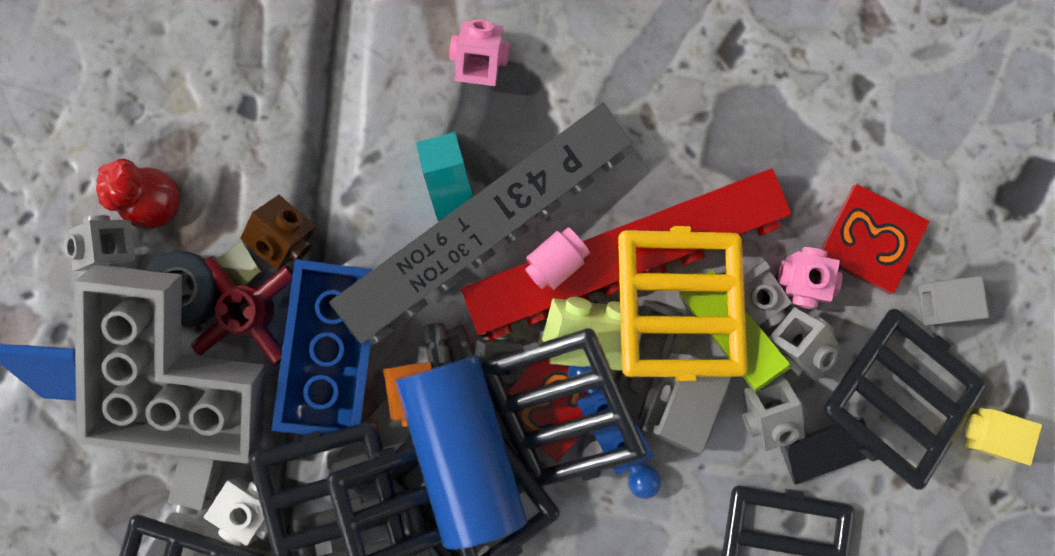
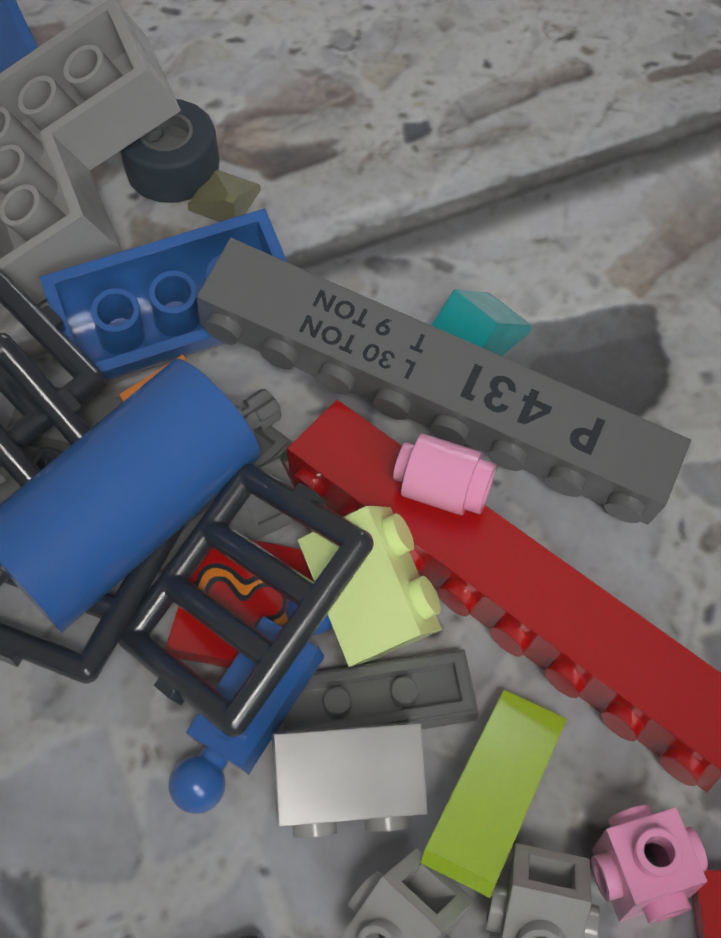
camera: 65 degrees right, 25 degrees down
(100, 243) = (188, 50): light grey brick -> none
(137, 194) = (252, 70): red hair -> none
(259, 313) = (173, 198): dark red bar -> none
(278, 232) = (294, 196): reddish brown brick -> none
(479, 52) = (645, 289): bright pink brick -> none
(631, 324) = (502, 764): yellow bar -> none
(762, 279) = (585, 779): light grey brick -> none

